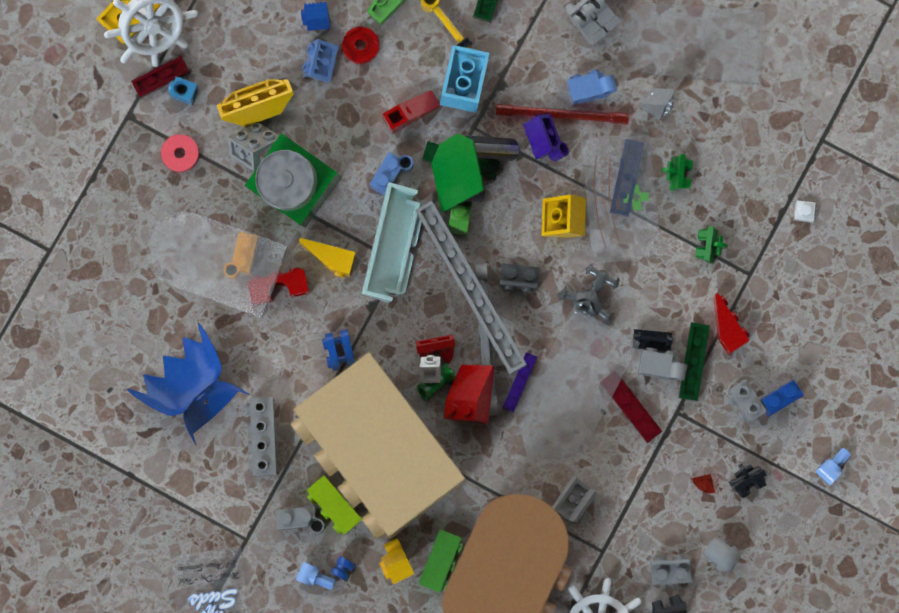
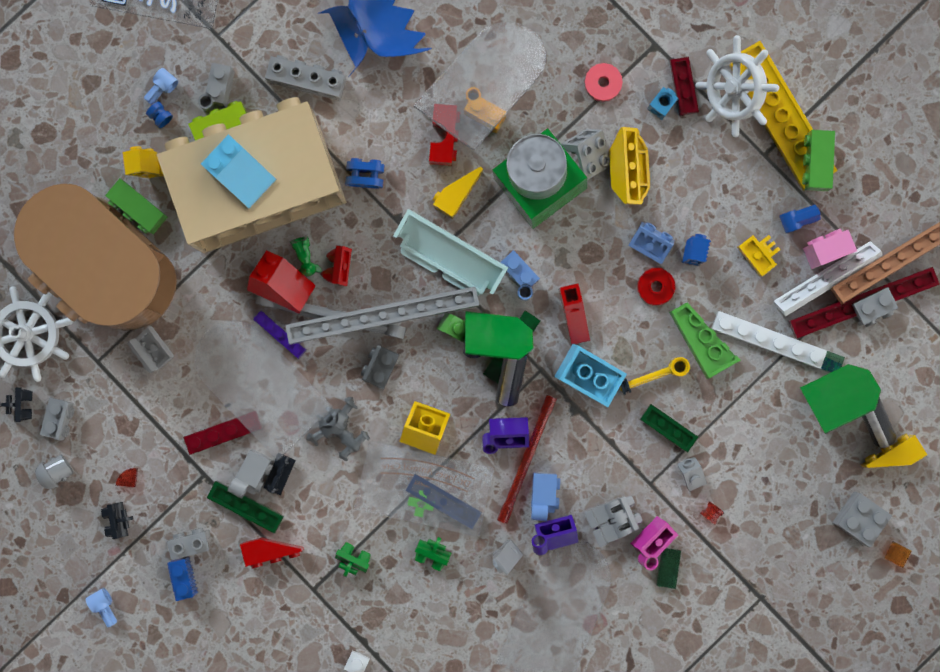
camera: 110 degrees right, 5 degrees up
(381, 449) = (238, 171): none -> medium azure slope
(430, 364) = (321, 253): white brick -> none
(623, 65) = (554, 534): none -> dark purple hinge

